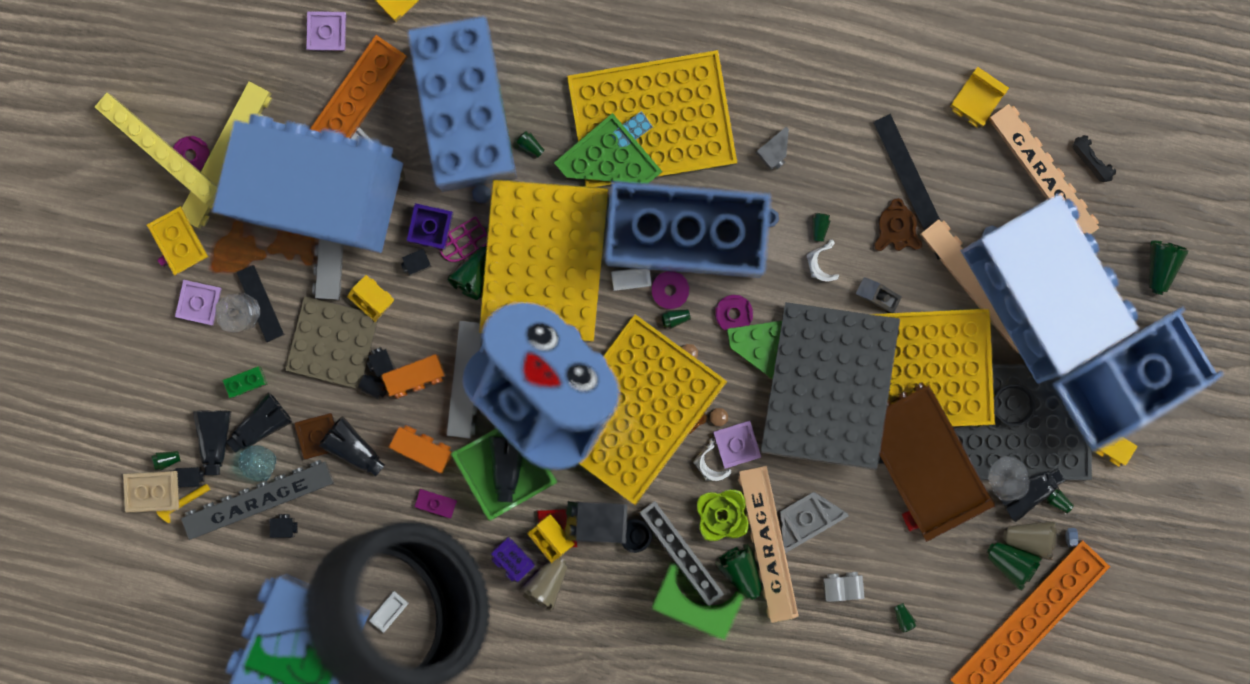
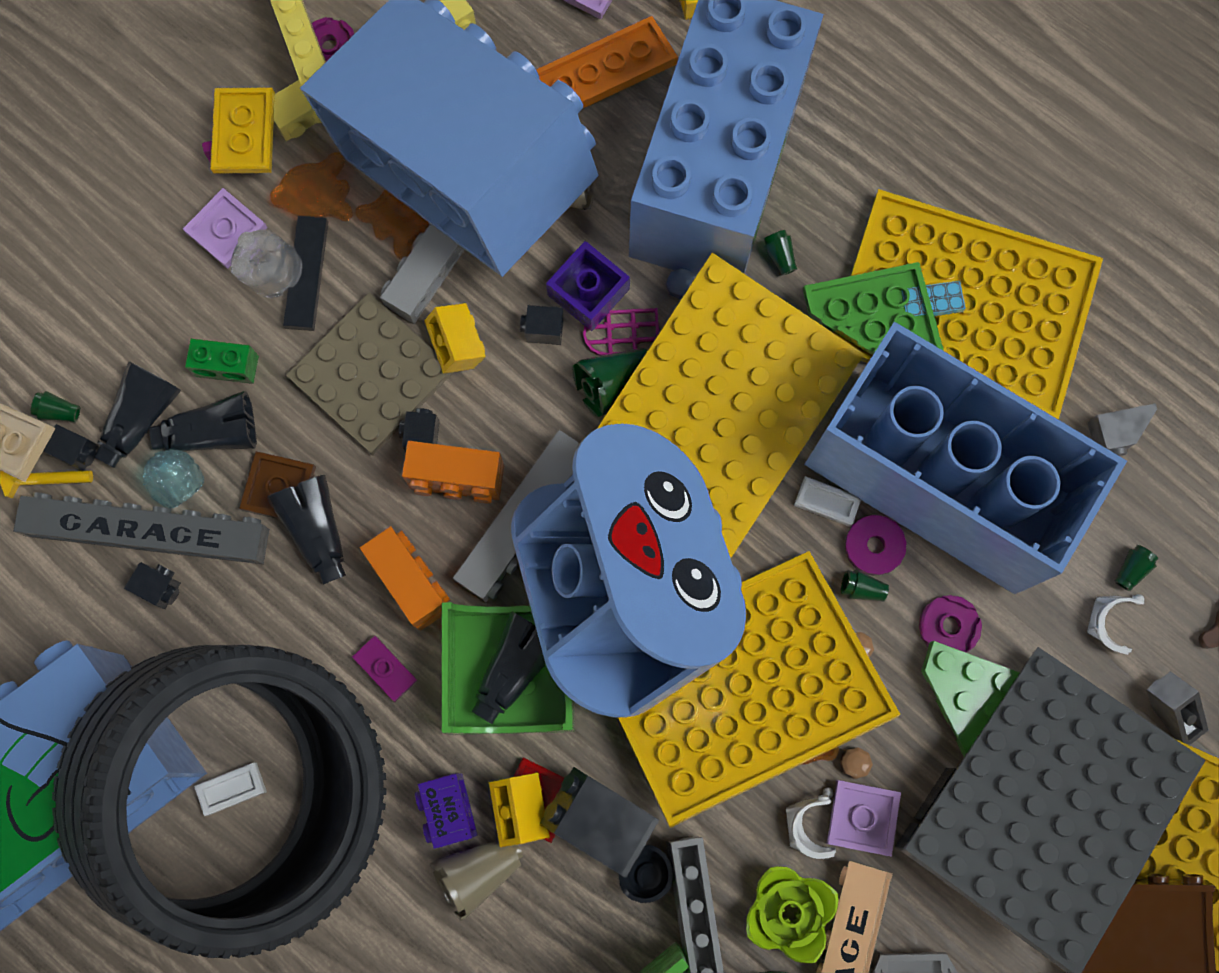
camera: 25 degrees right, 10 degrees down
(373, 386) = (388, 458): black brick -> none

